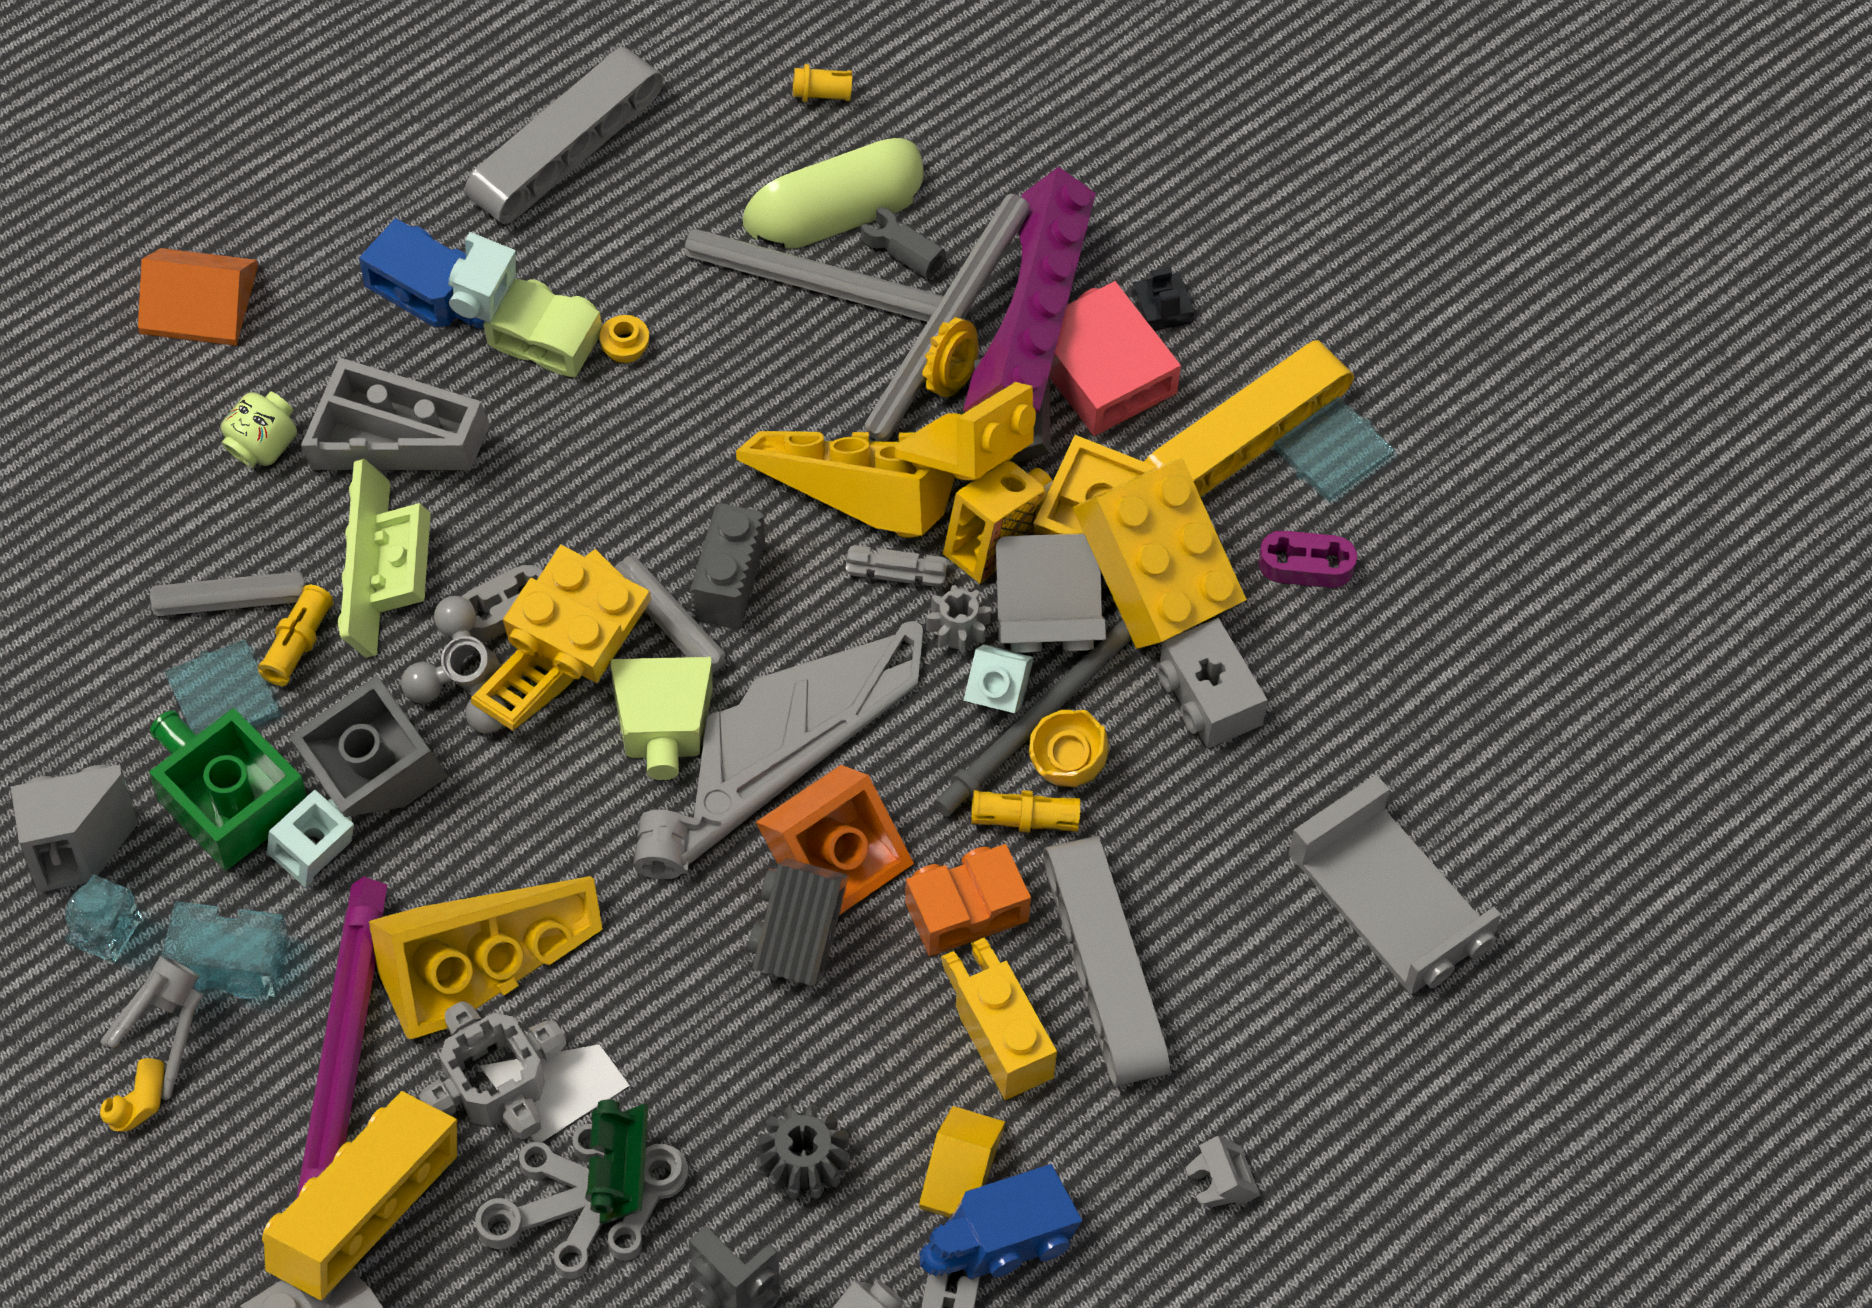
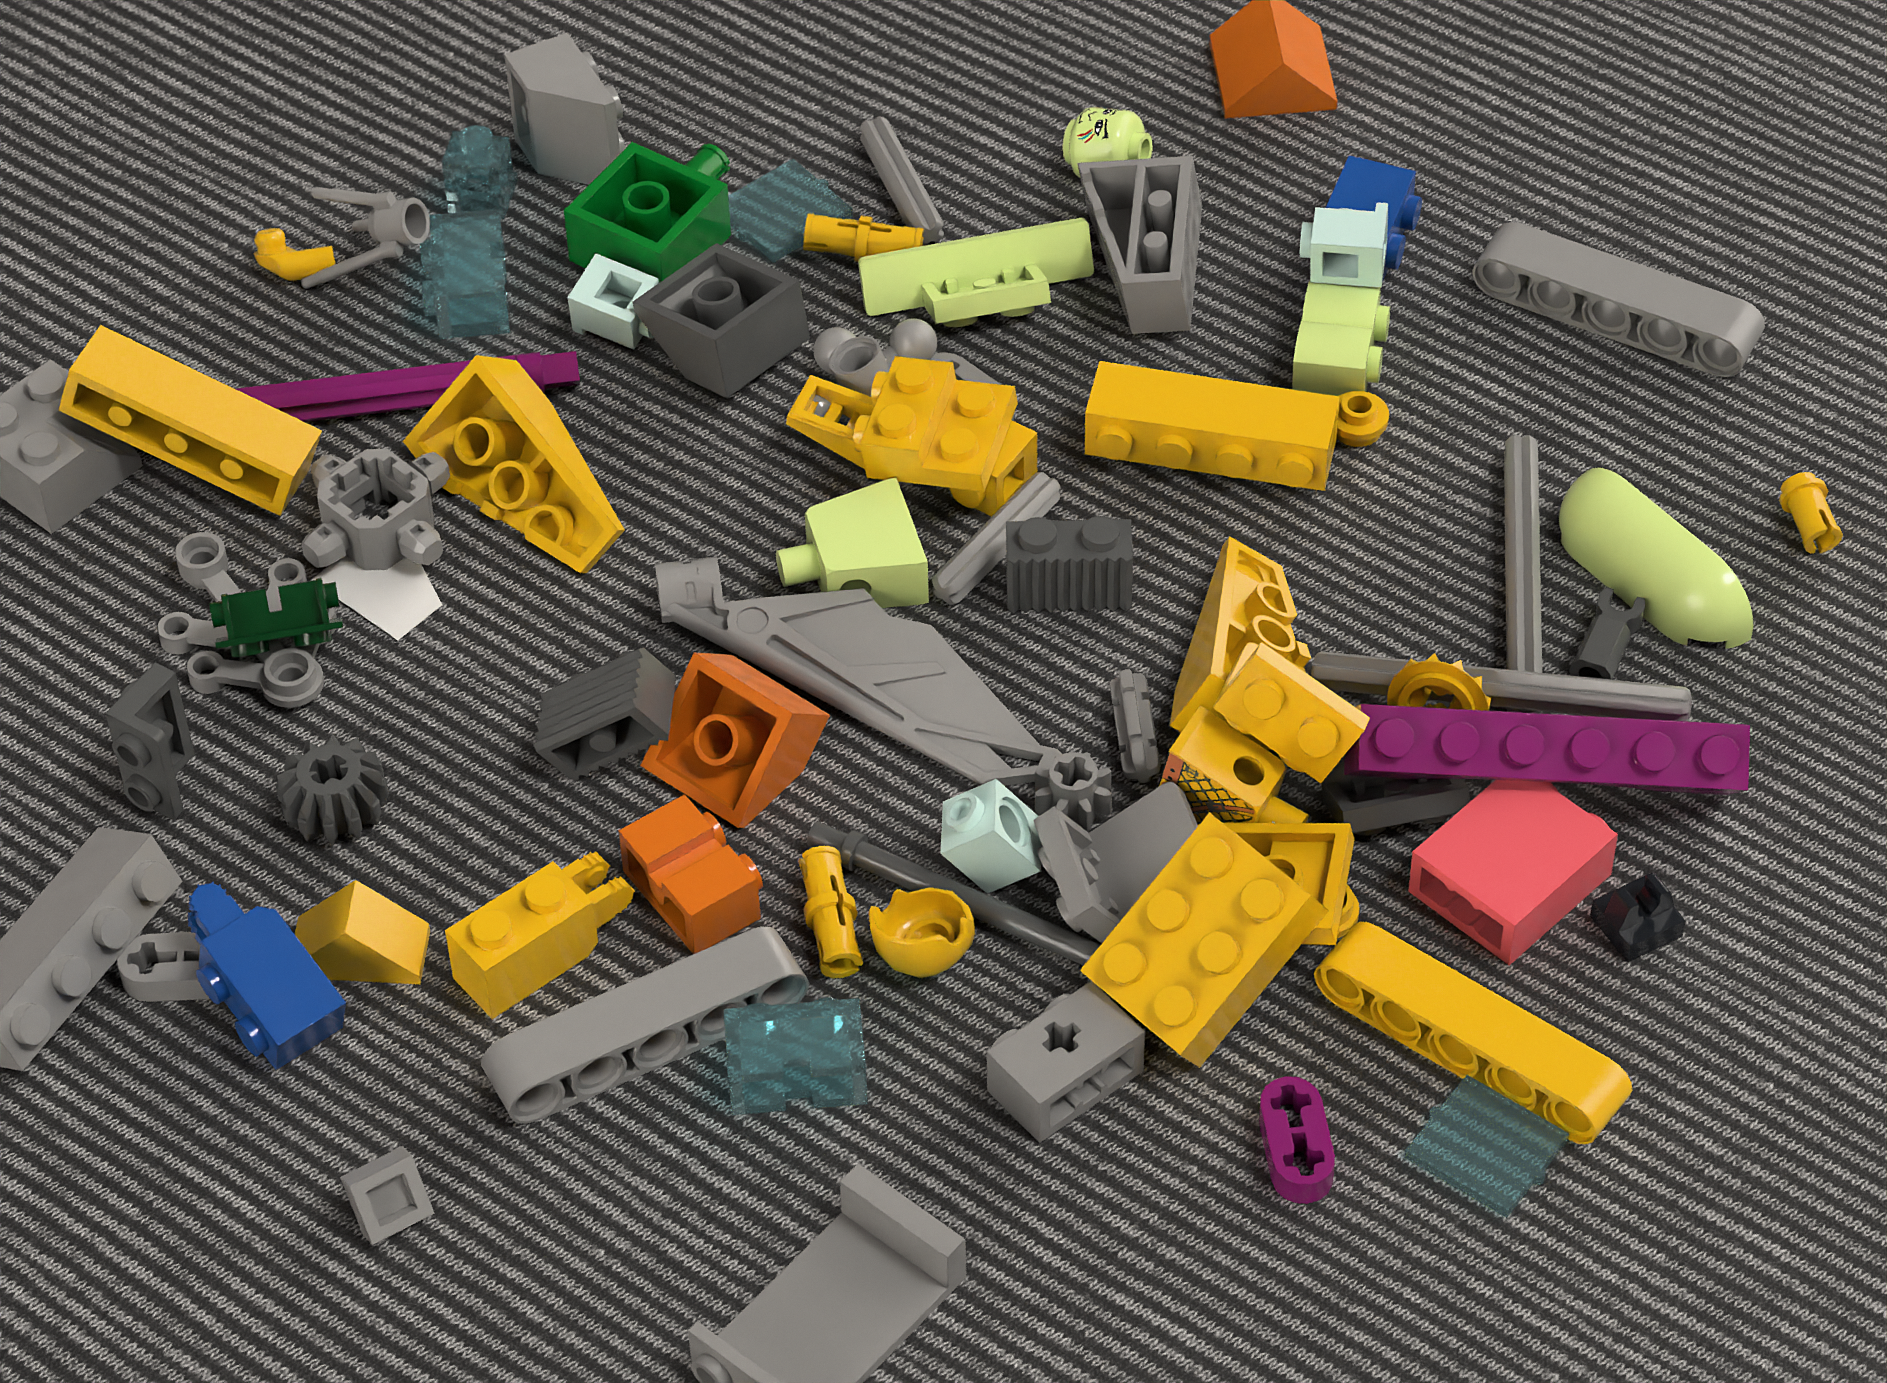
camera: 80 degrees right, 10 degrees down
(617, 433) = (1211, 425): none -> yellow brick
(1163, 861) = (795, 1054): none -> clear light blue brick

